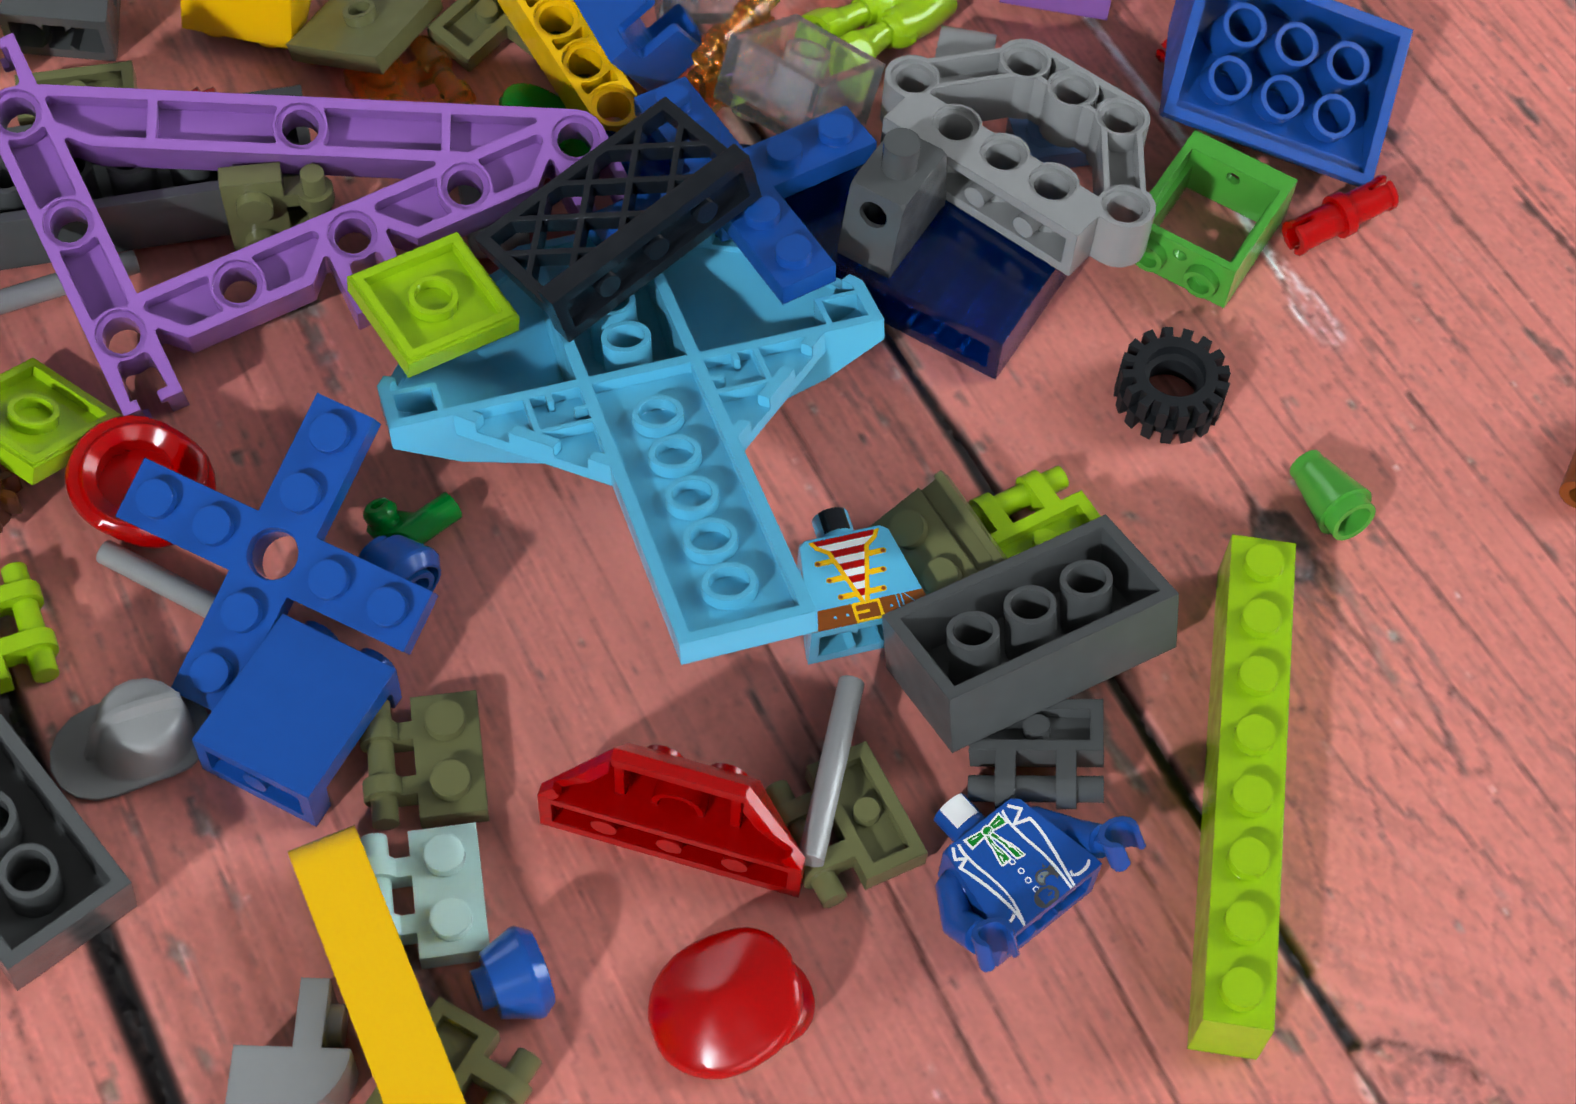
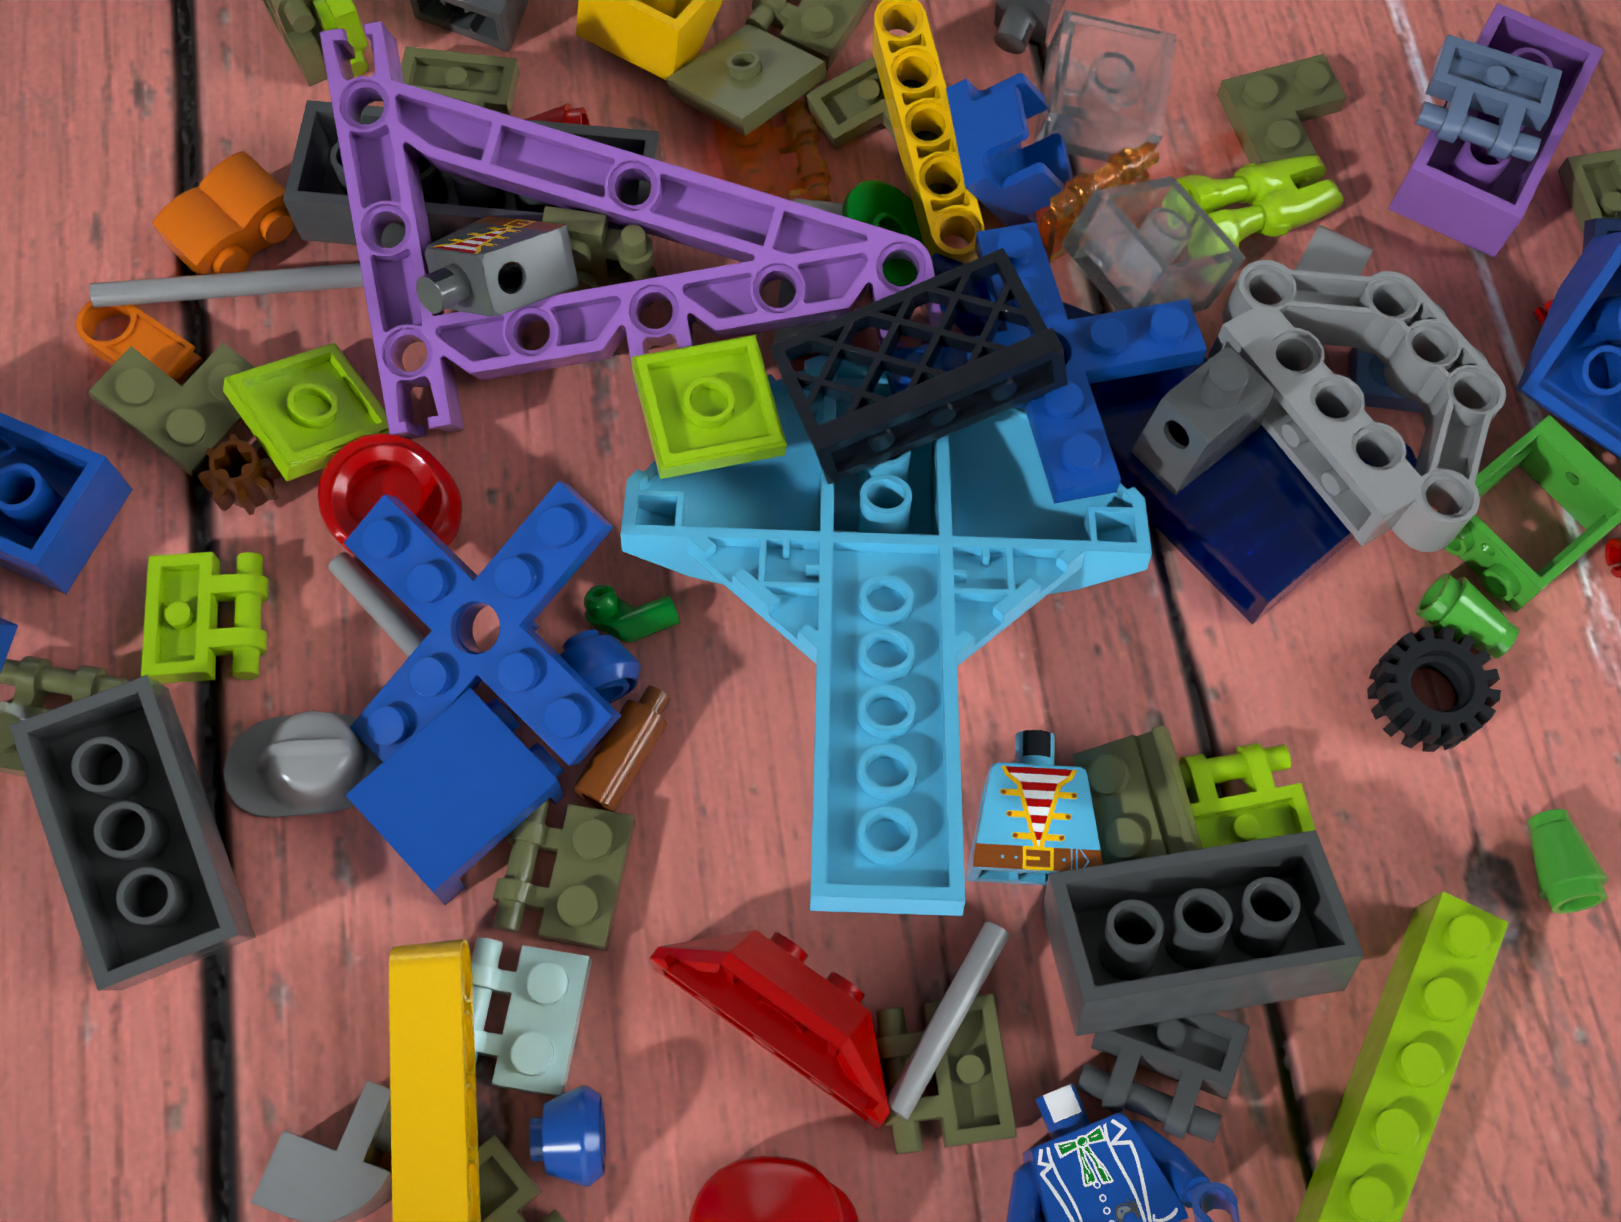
camera: 20 degrees right, 10 degrees up
(164, 238) = (472, 269): none -> dark grey torso
(446, 638) = (623, 751): none -> dark orange cylinder
(1177, 309) = (1466, 610): none -> bright green cone

